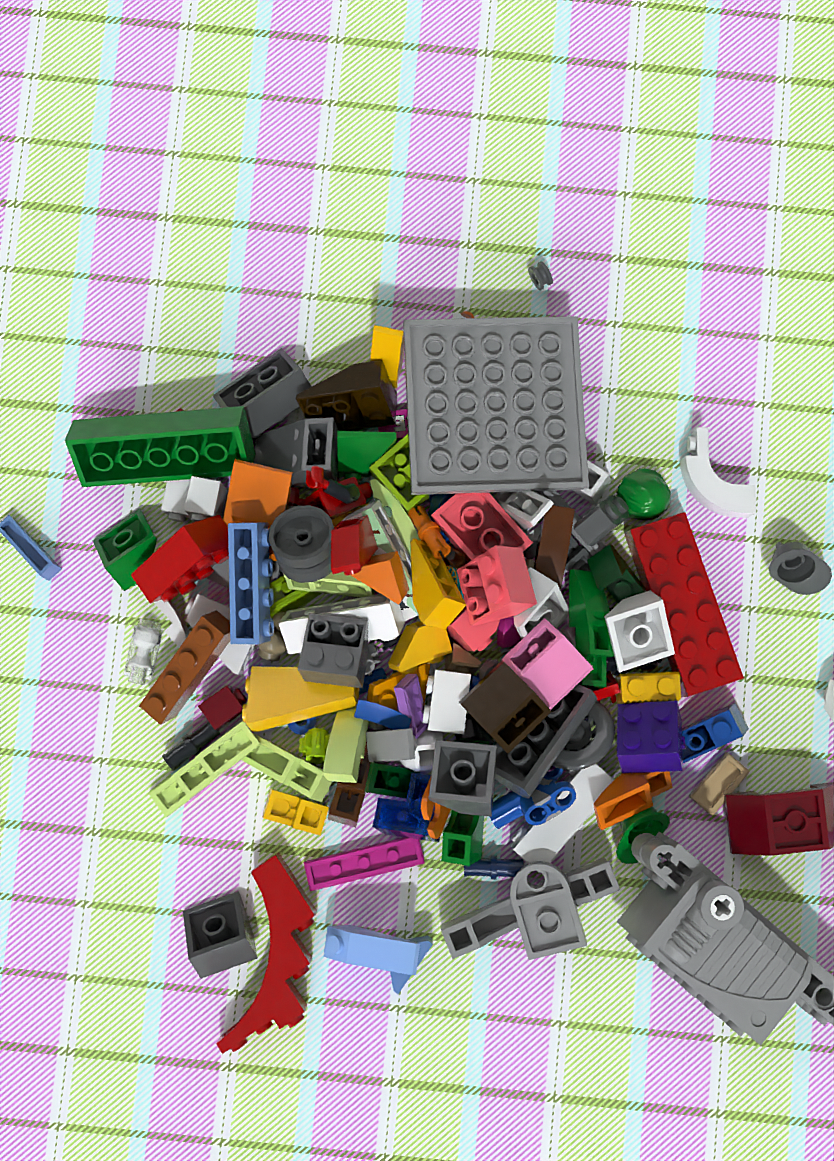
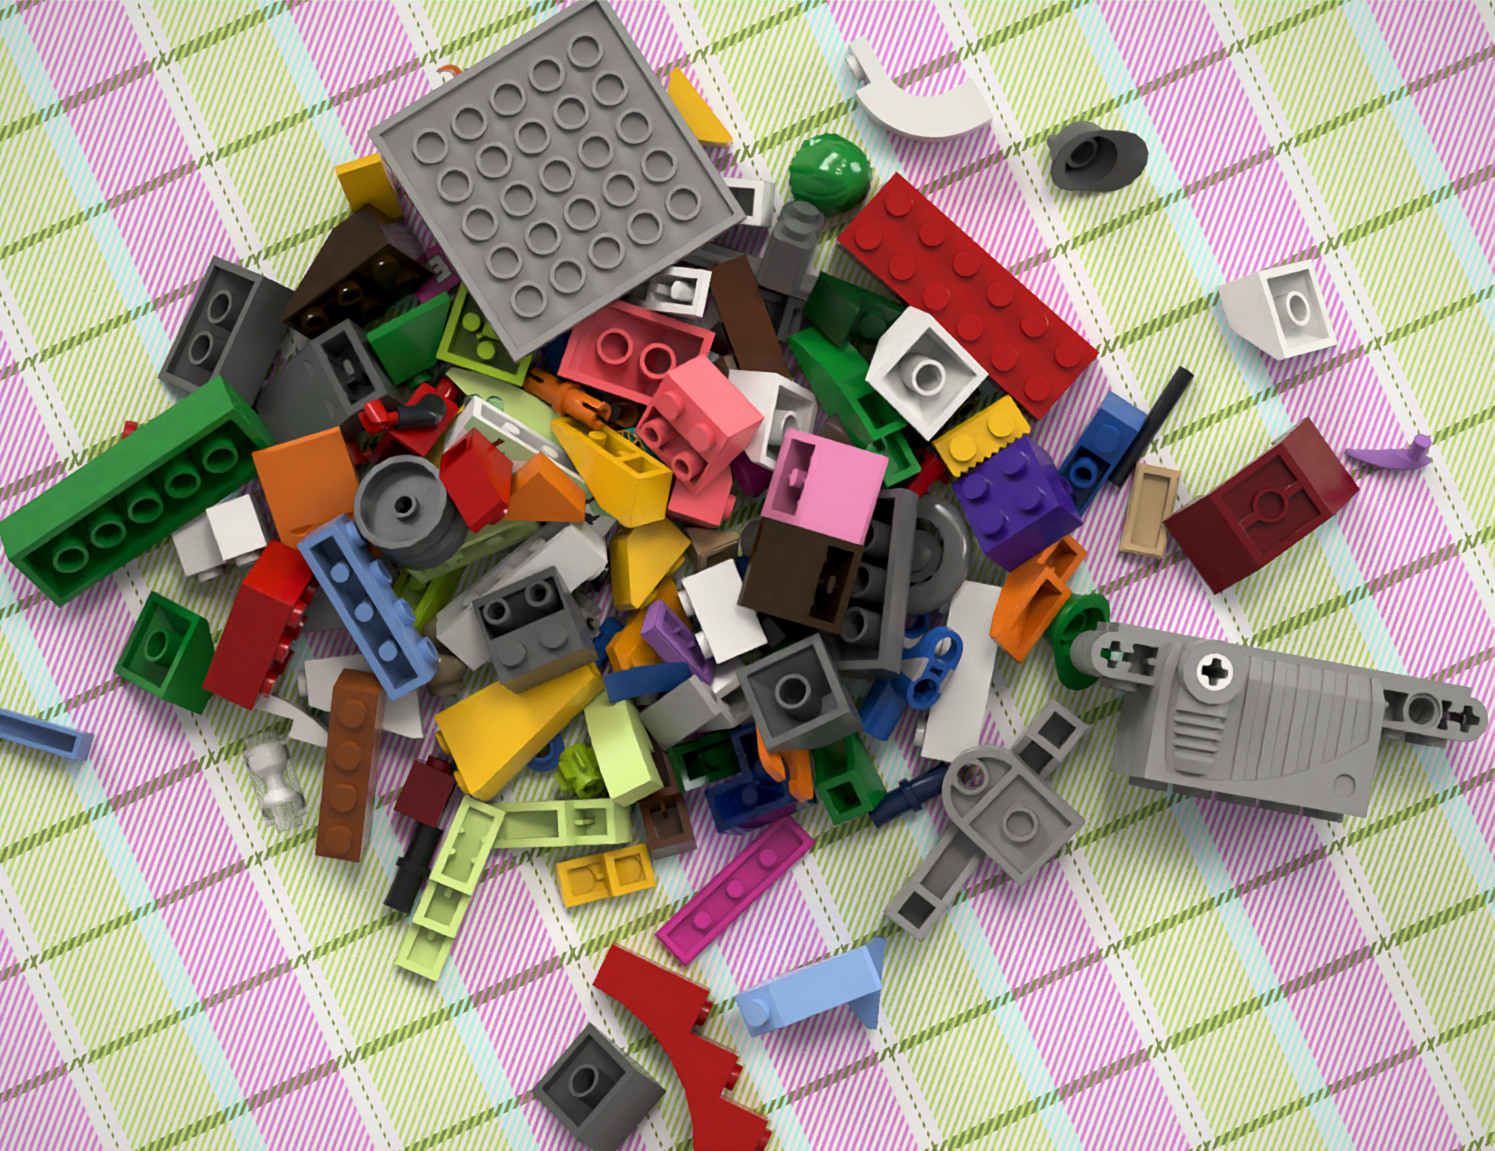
camera: 30 degrees left, 5 degrees up
(592, 419) = (697, 113): none -> yellow slope
(752, 733) = (1151, 425): none -> black bar

